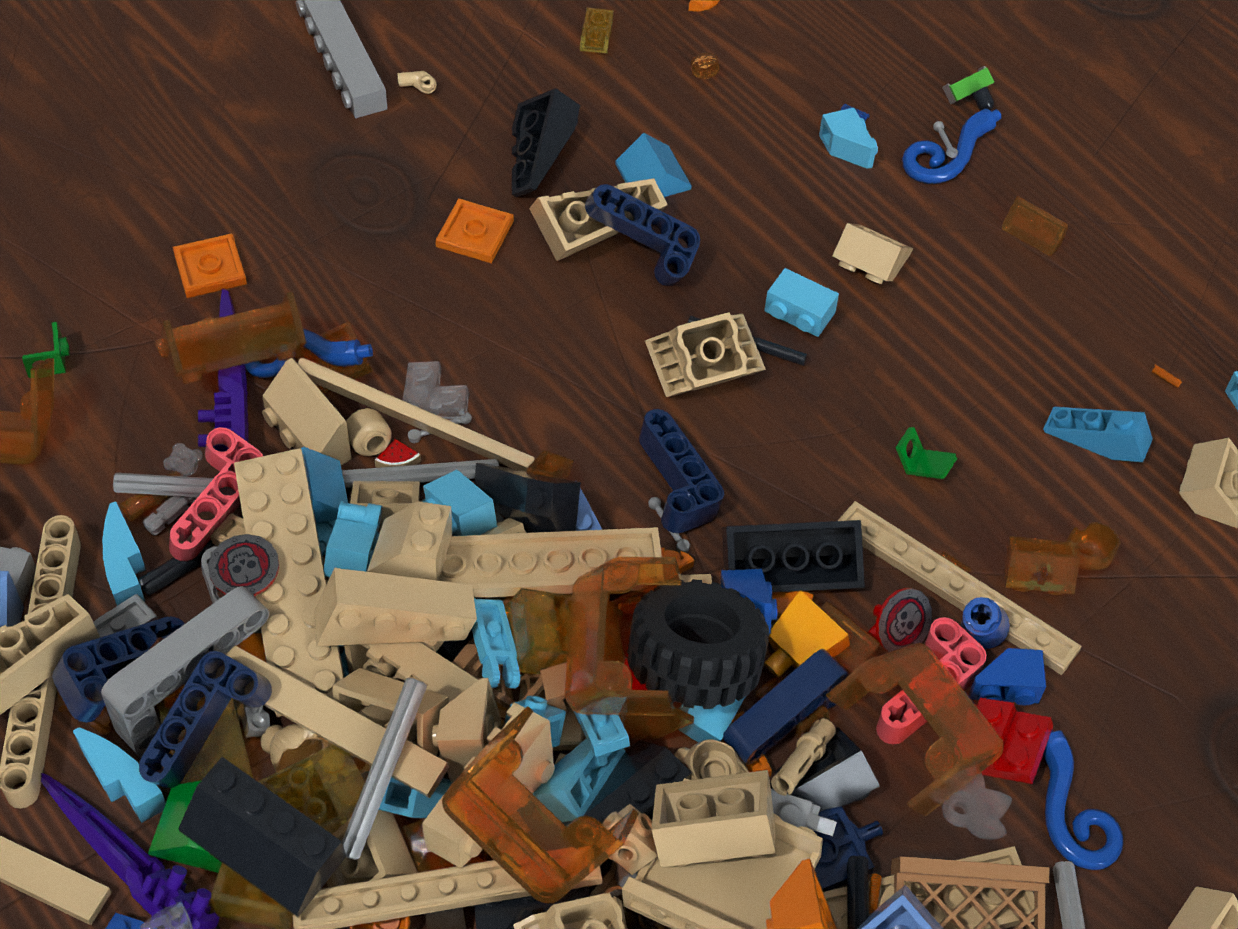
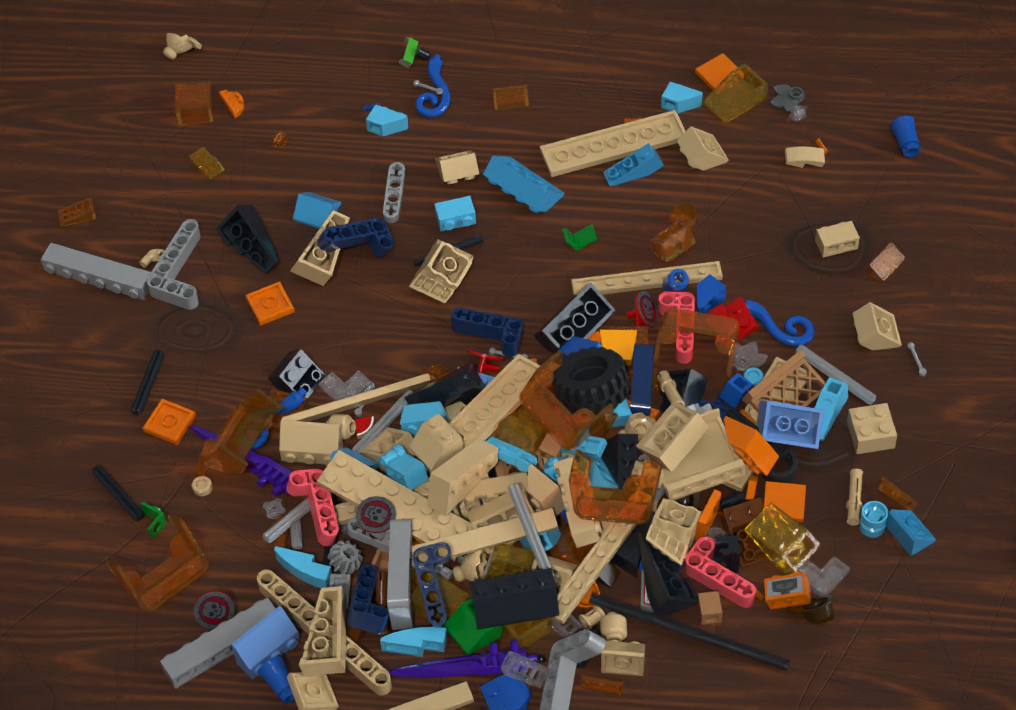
camera: 40 degrees left, 0 degrees up
(59, 293) = (116, 491): none -> black axle
(149, 365) = (202, 486): none -> tan tile
(172, 577) = (345, 557): none -> light grey gear
(242, 204) = (147, 382): none -> black axle
(396, 333) = (296, 372): none -> black slope
(425, 100) = (161, 279): none -> light grey beam
(629, 498) = (483, 365): none -> red shield
(760, 220) = (394, 192): none -> light grey beam
(903, 837) = (735, 390): none -> blue slope
(930, 336) = (522, 183): none -> dark azure slope
(953, 843) = (754, 375): none -> medium azure tile
(1105, 380) = (611, 143): none -> tan plate

